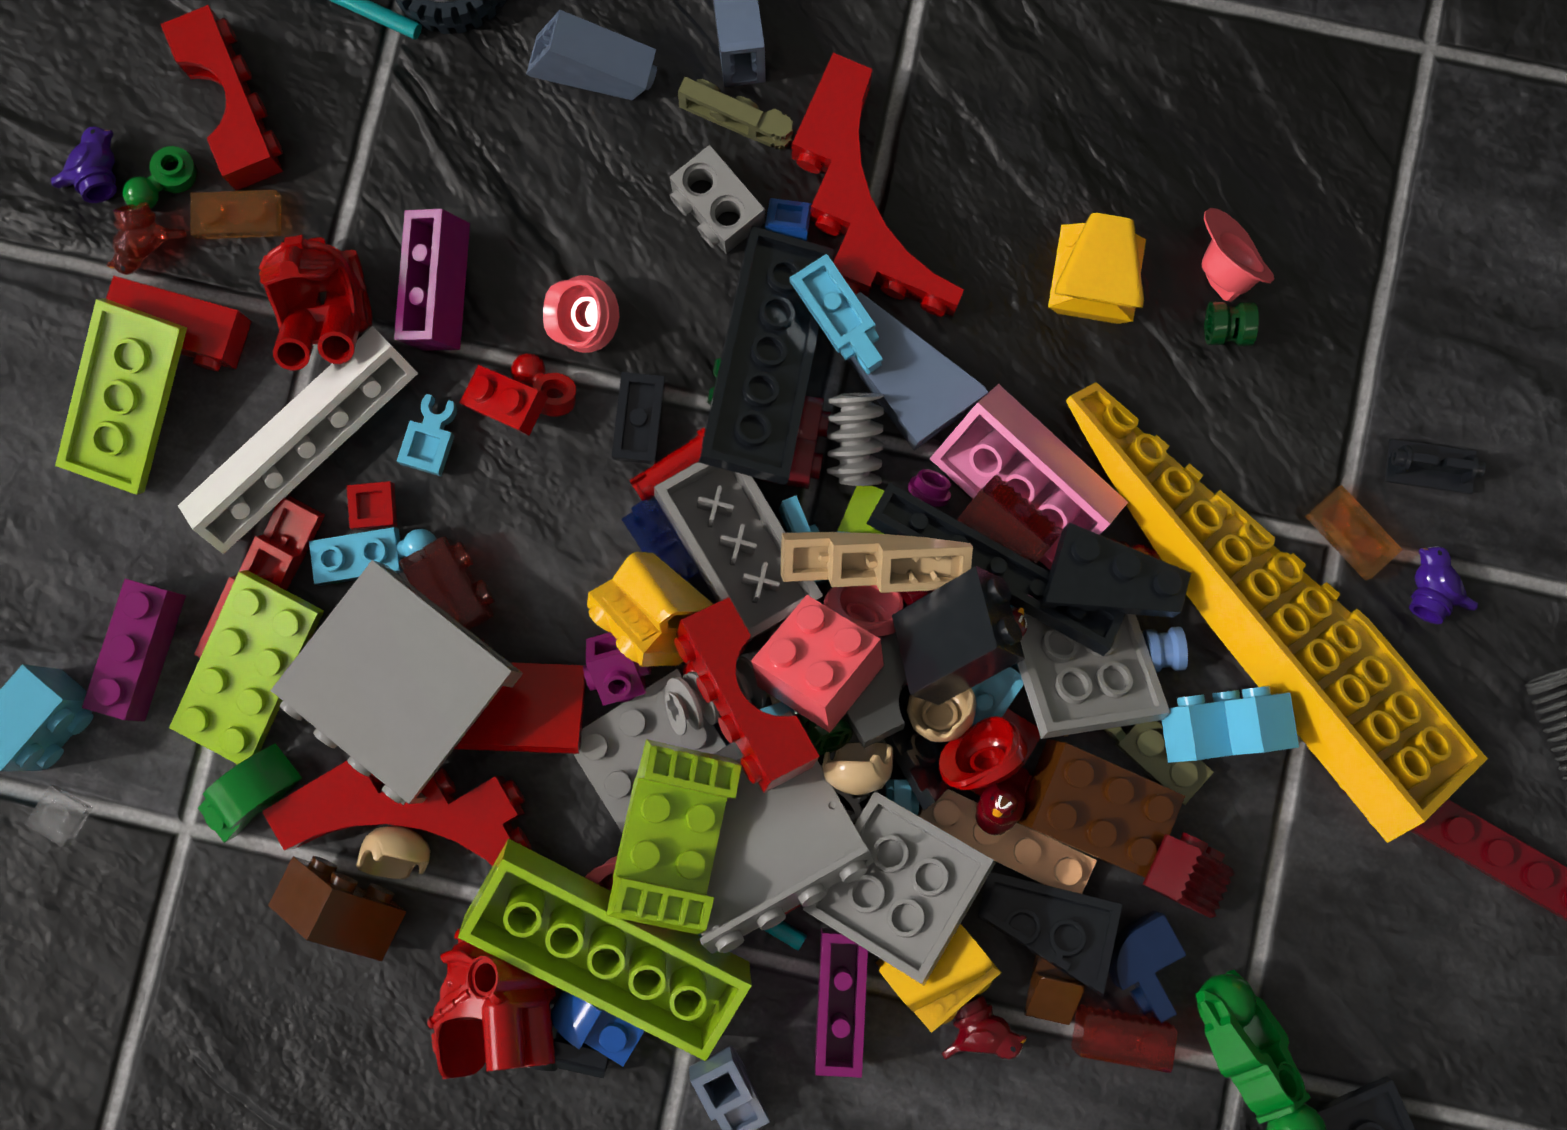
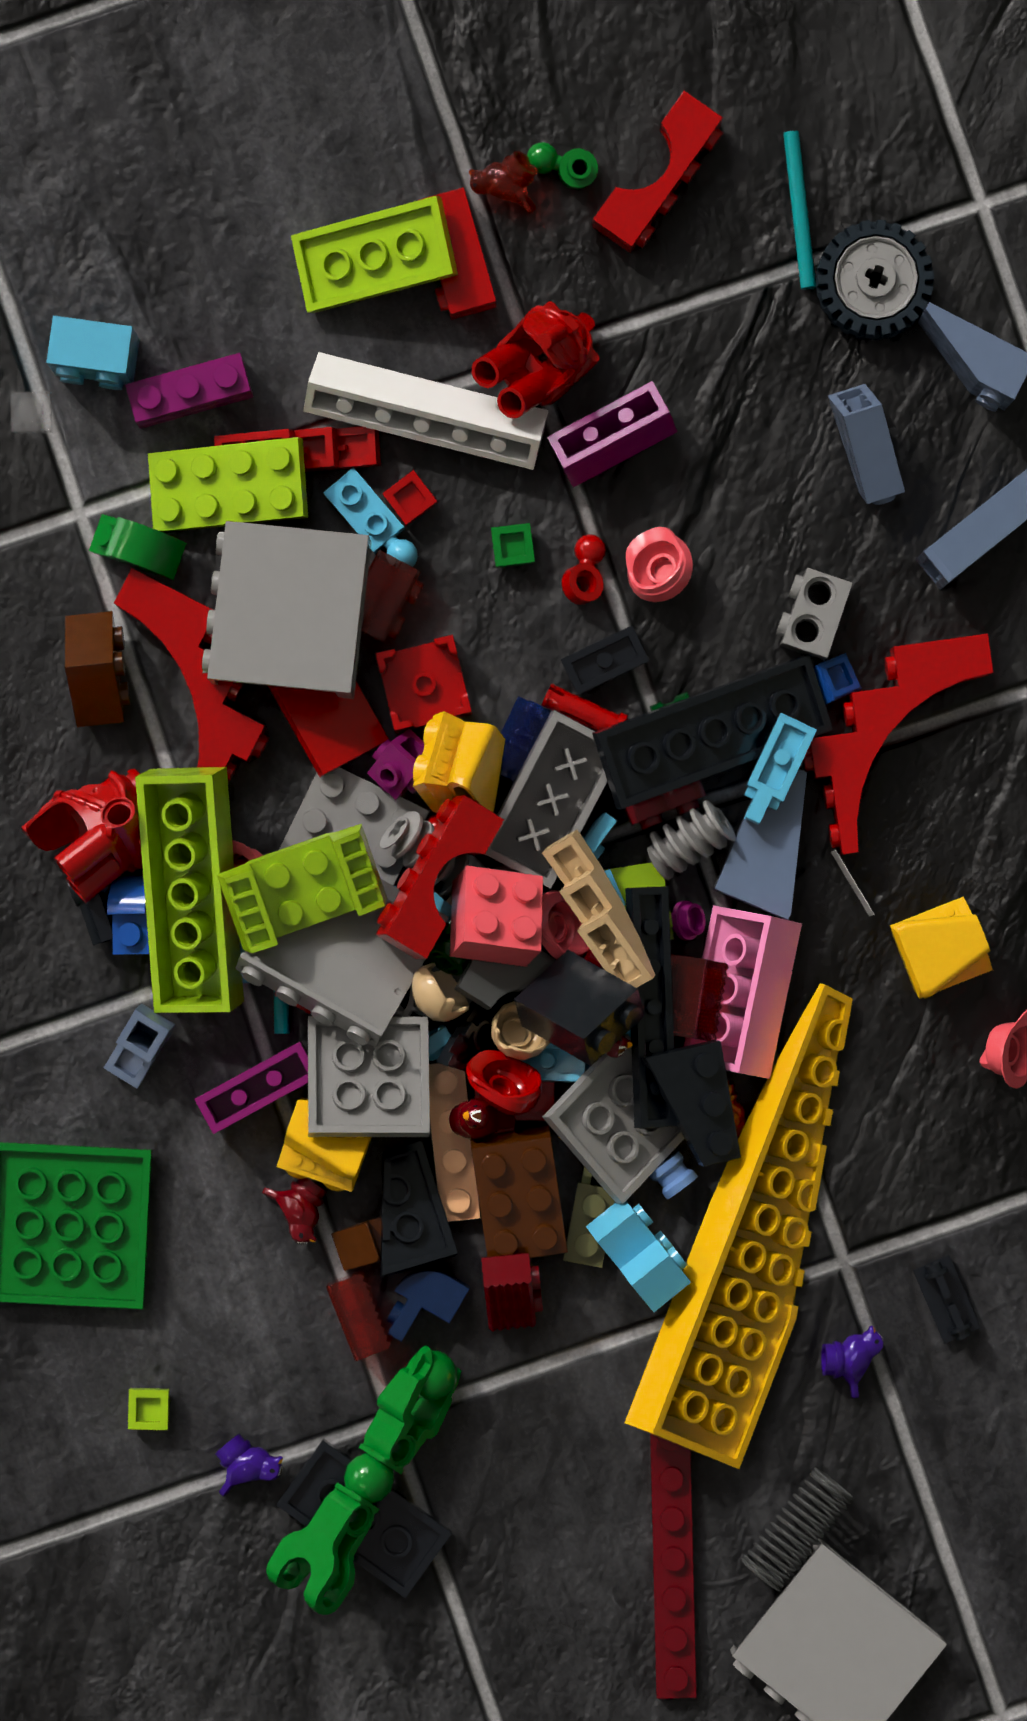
camera: 55 degrees right, 5 degrees up
(90, 167) = (539, 105): dark purple animal -> none
(235, 214) = (572, 241): clear orange plate -> none
(393, 852) = (160, 684): tan hair -> none
(428, 444) = (483, 509): medium azure plate -> none
(477, 437) = (512, 545): none -> green plate
(504, 399) = (553, 548): red plate -> none
(551, 599) = (423, 683): none -> red panel
(735, 114) = (896, 588): olive hinge -> none
(1006, 316) = (851, 881): none -> white sticker
(1231, 323) = (959, 1068): dark green wheel -> none
(1353, 533) = (855, 1268): clear orange plate -> none

